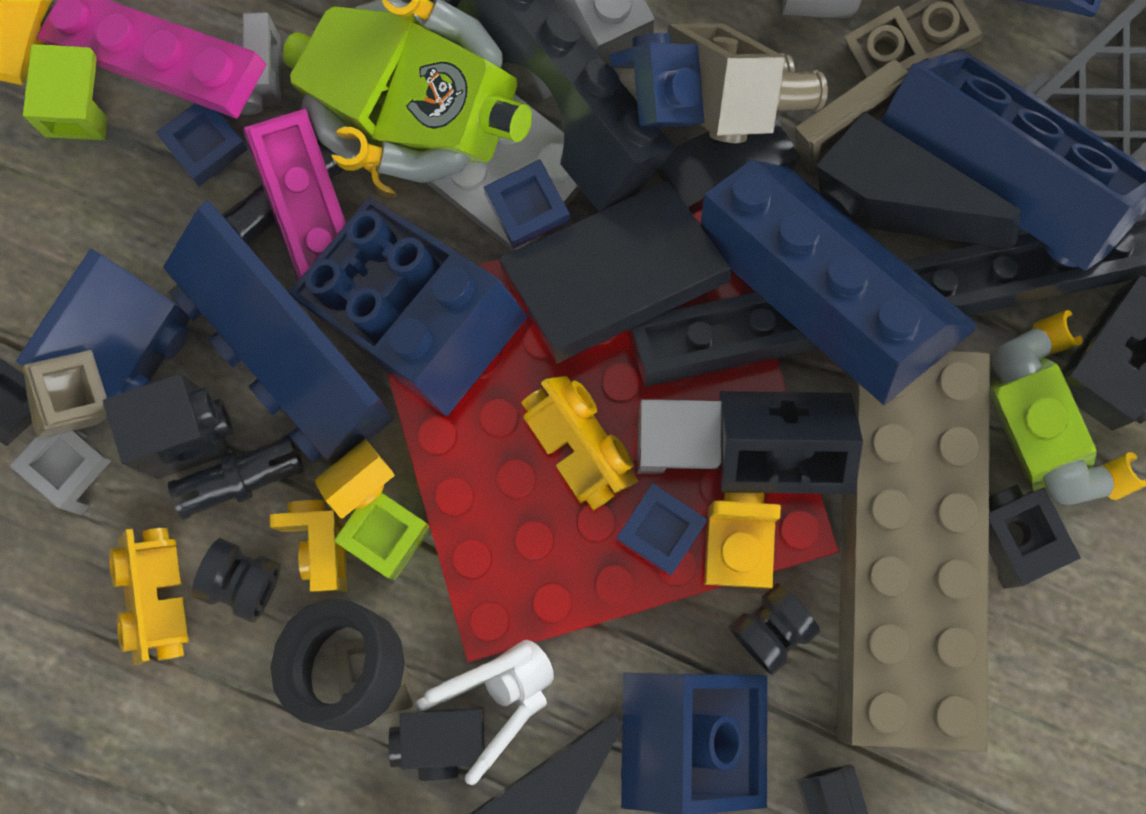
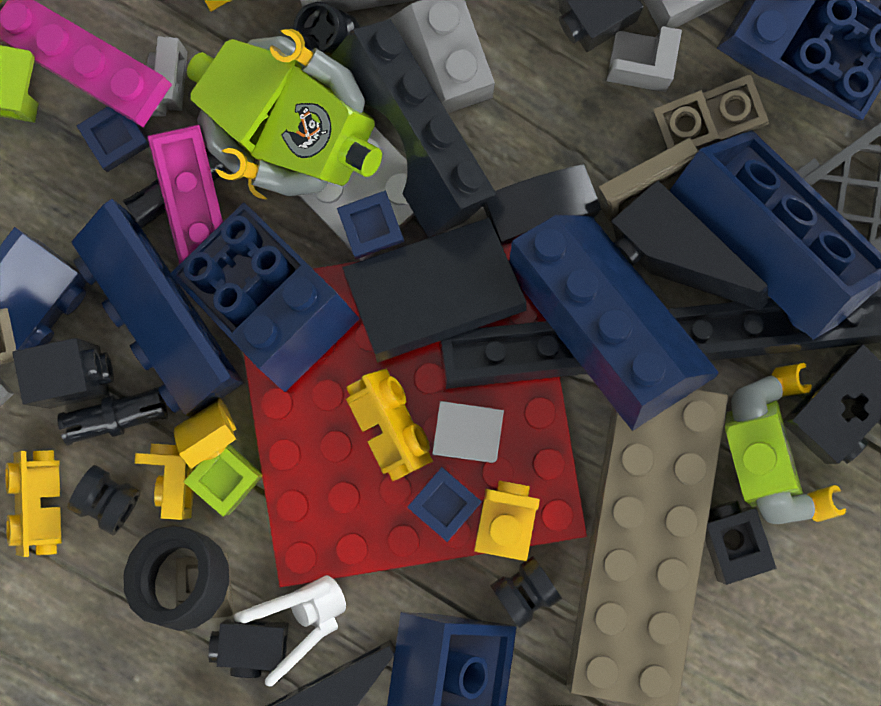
camera: 10 degrees right, 5 degrees up
(664, 79) = (493, 141): dark blue bracket -> none
(746, 81) = (551, 145): dark tan brick -> none
(789, 442) = (553, 448): black brick -> none

